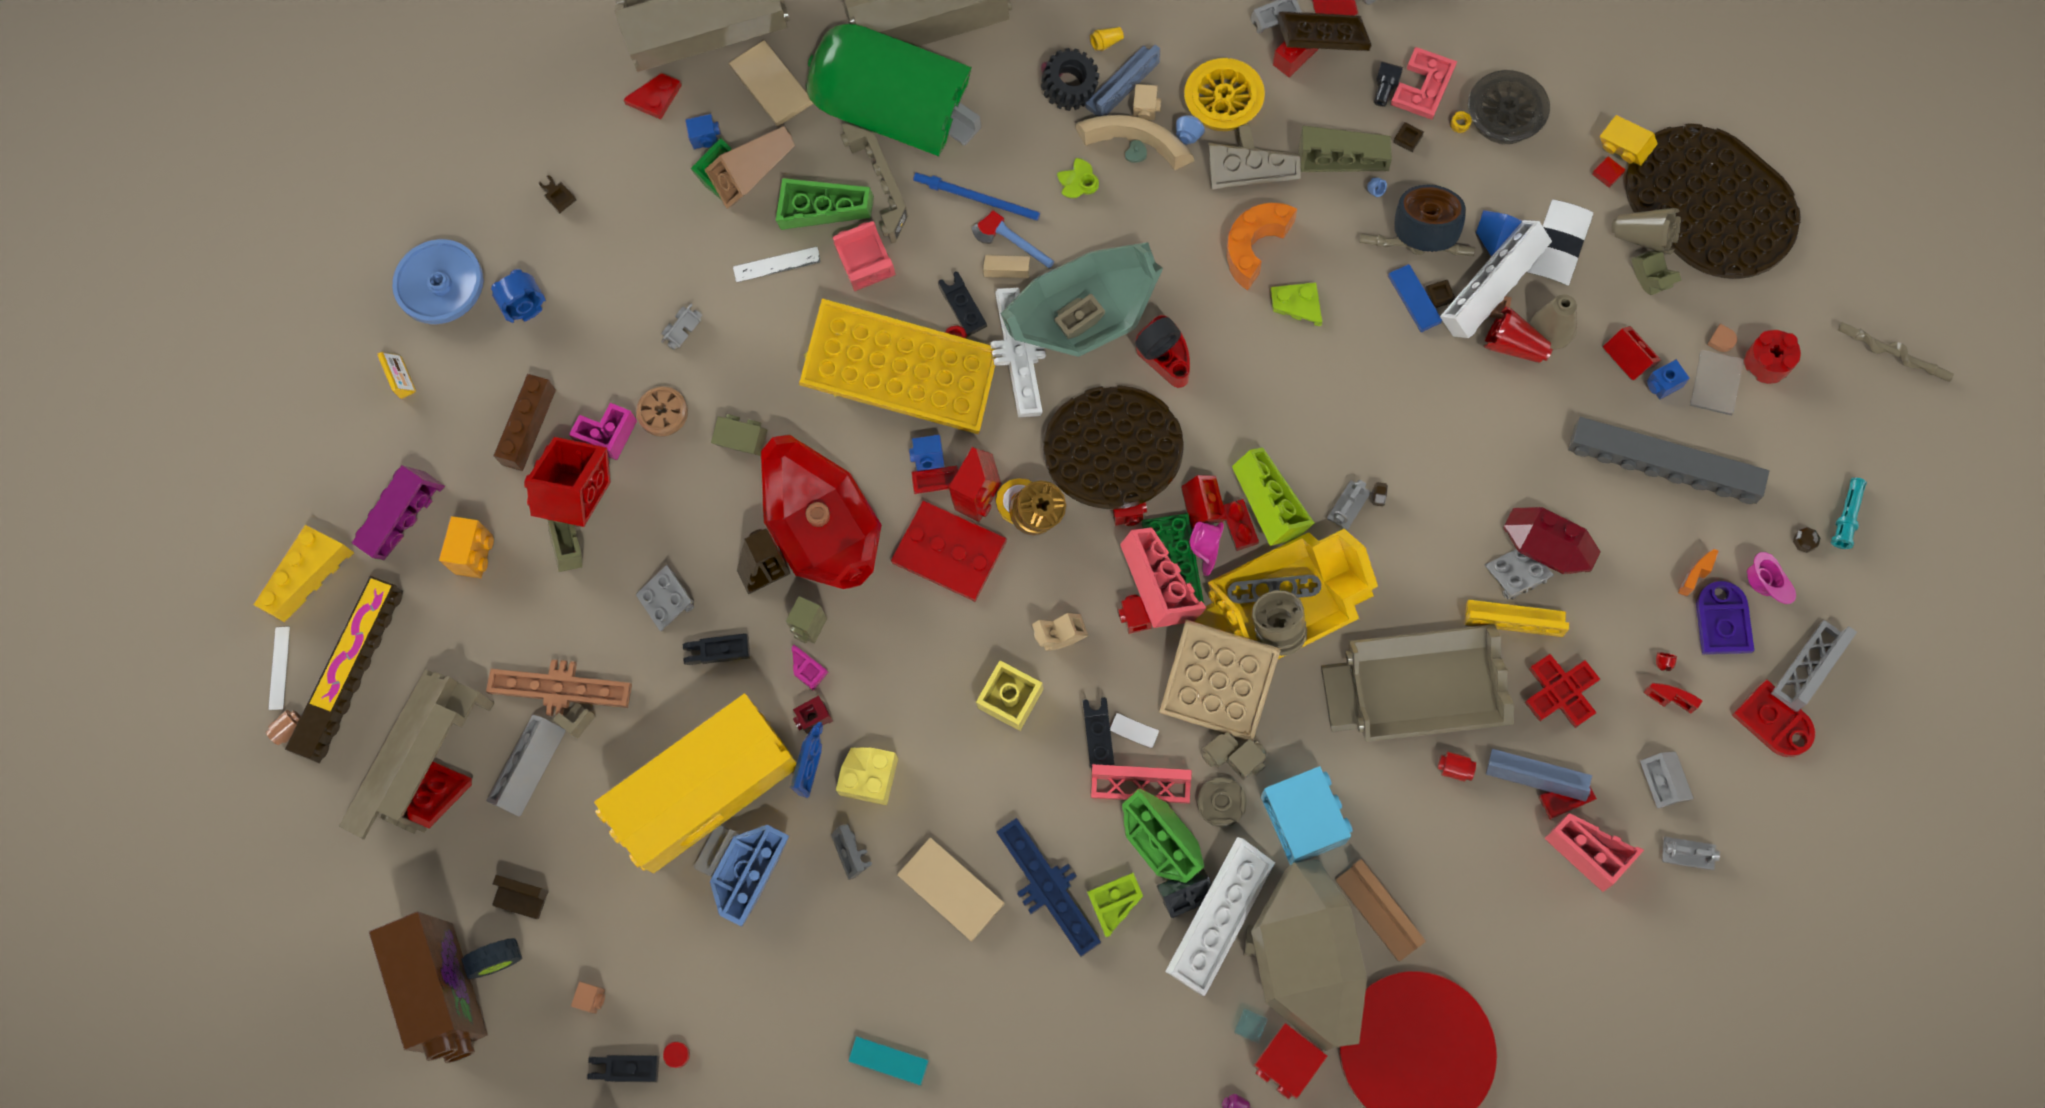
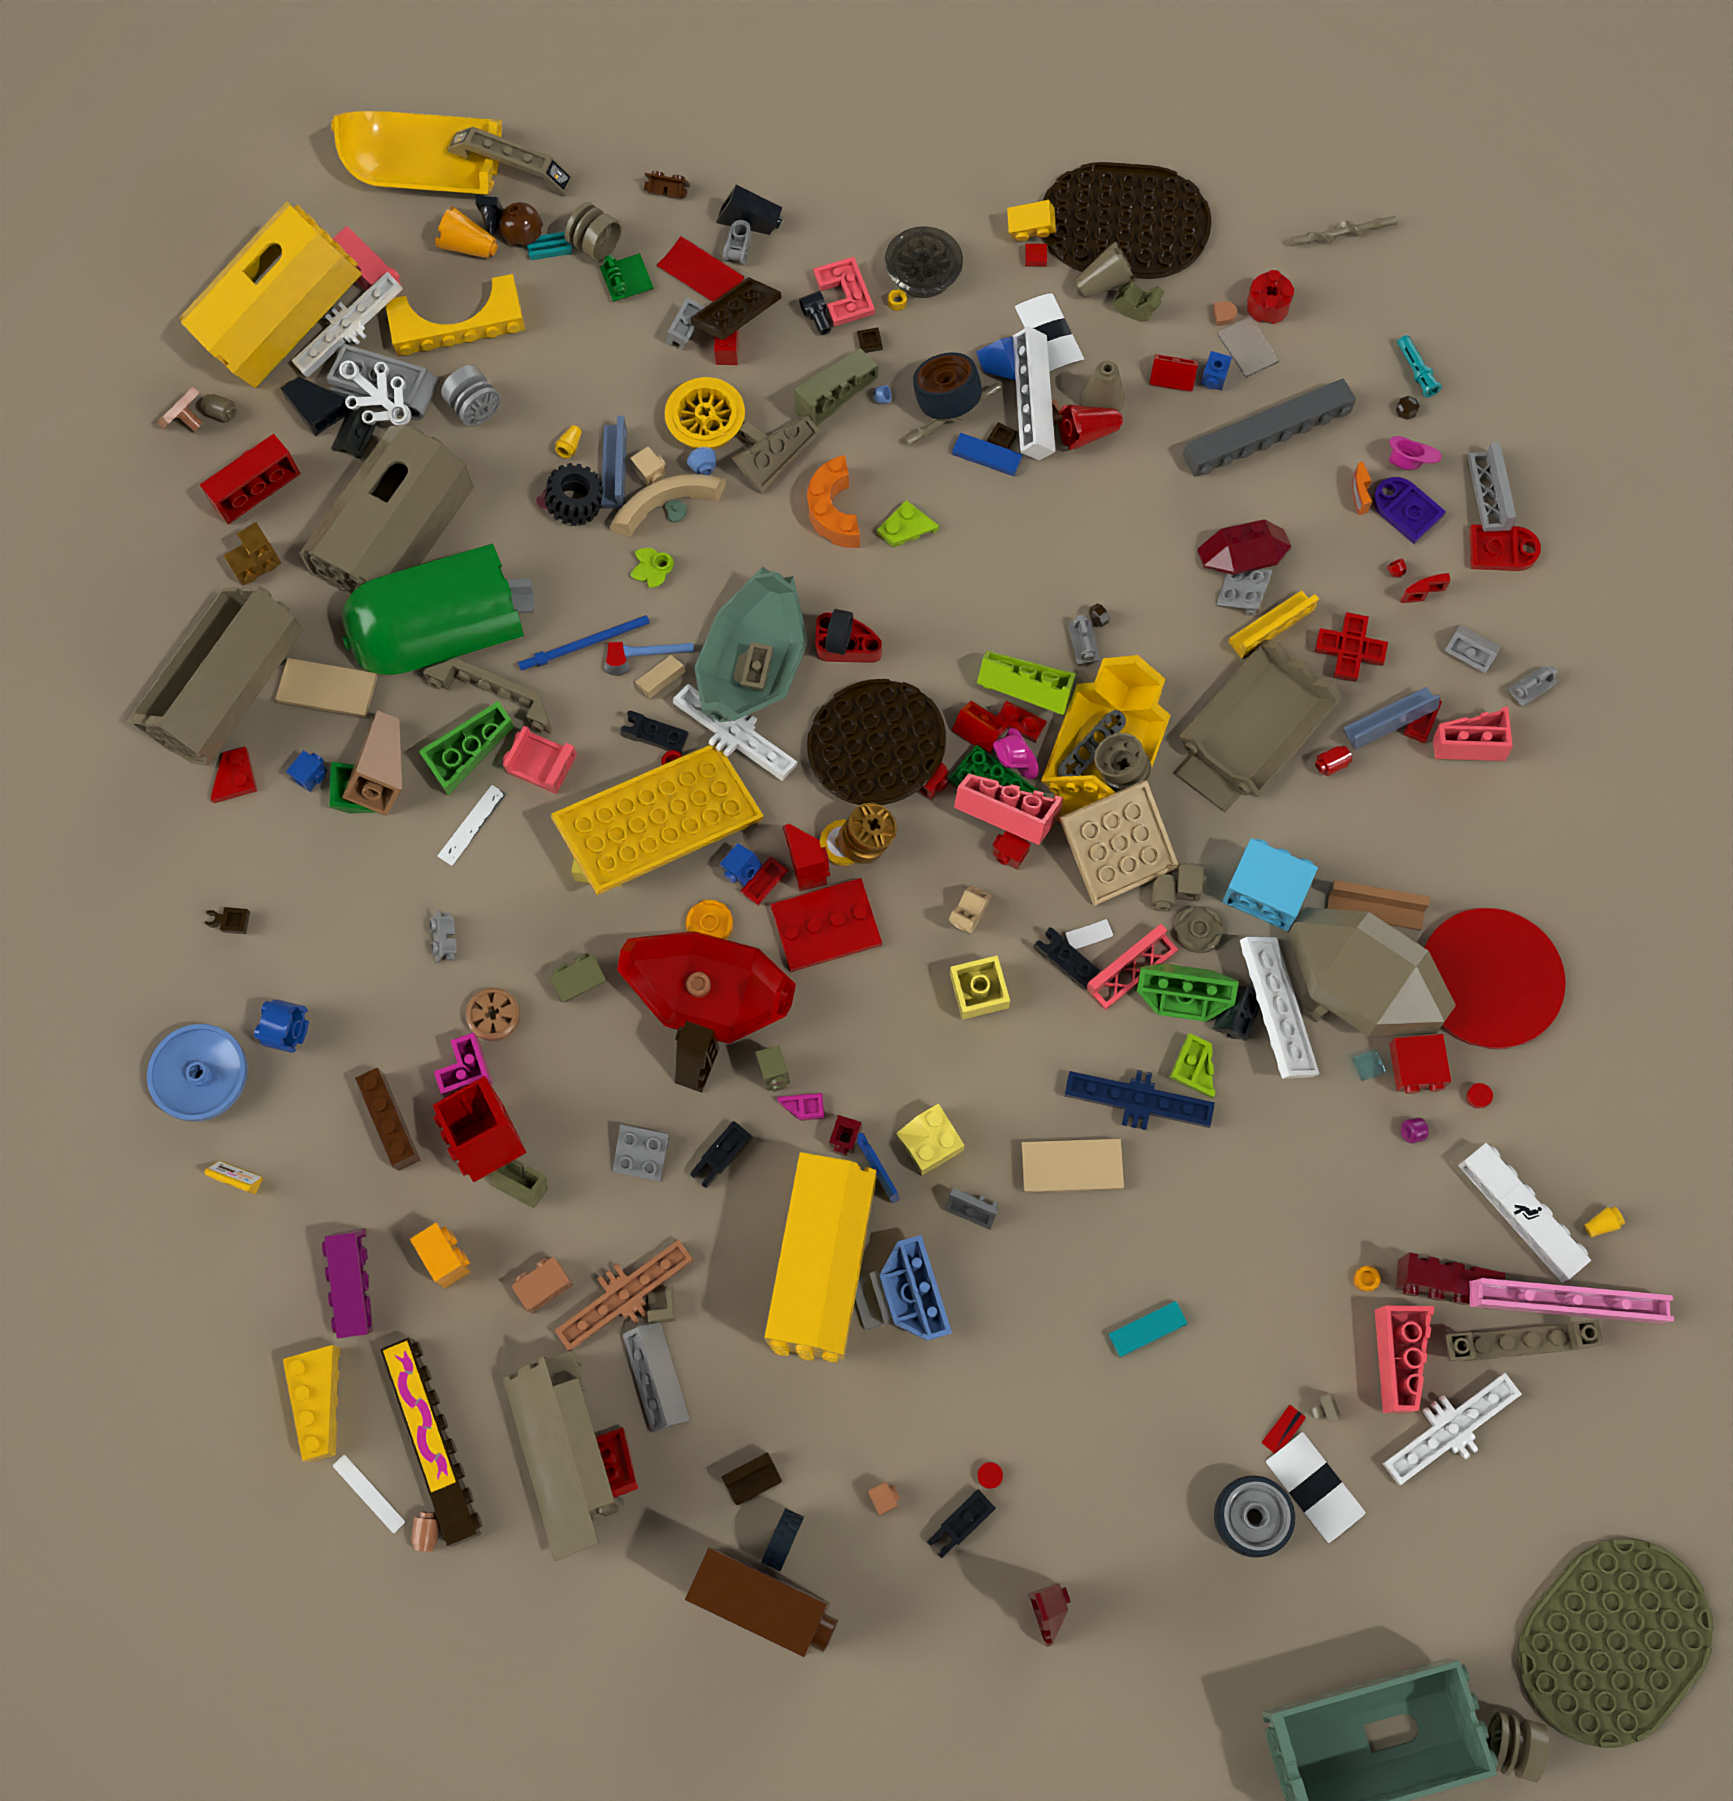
camera: 50 degrees left, 0 degrees up
(513, 629) = (541, 1284): none -> nougat brick
(871, 475) = (710, 918): none -> light orange tile

